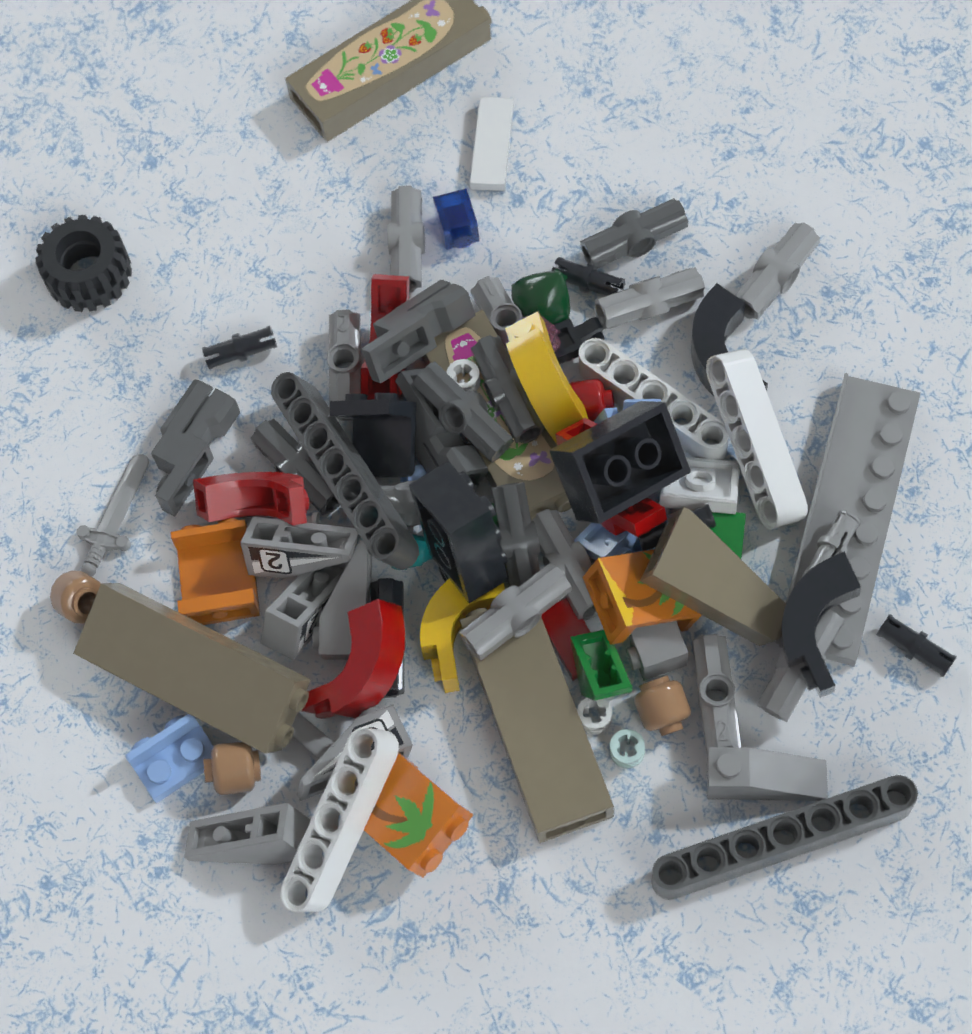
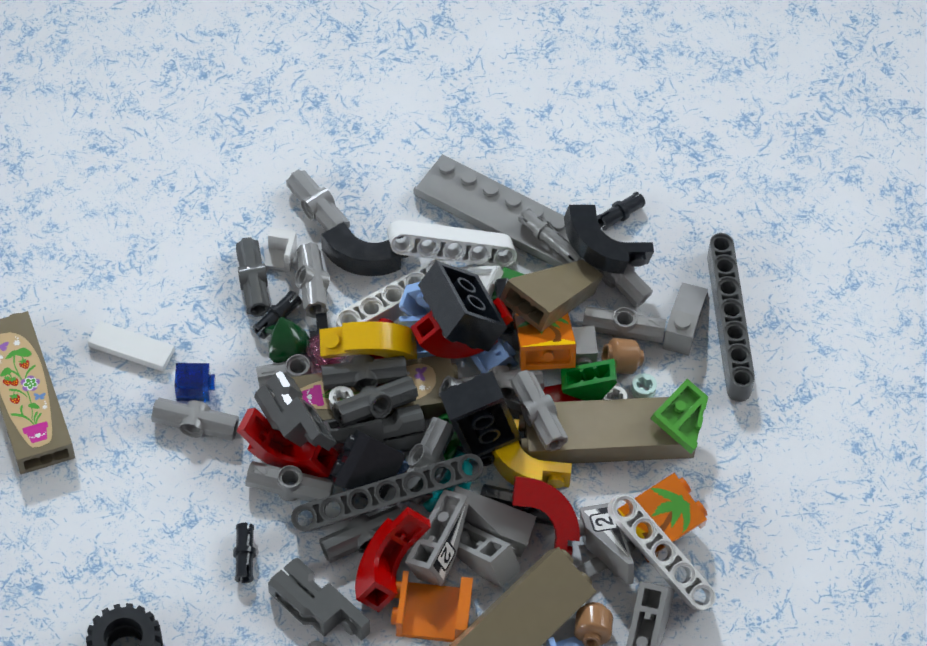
camera: 85 degrees left, 10 degrees down
(569, 800) = (683, 415): none -> bright green wing
(688, 253) = (281, 249): none -> white panel

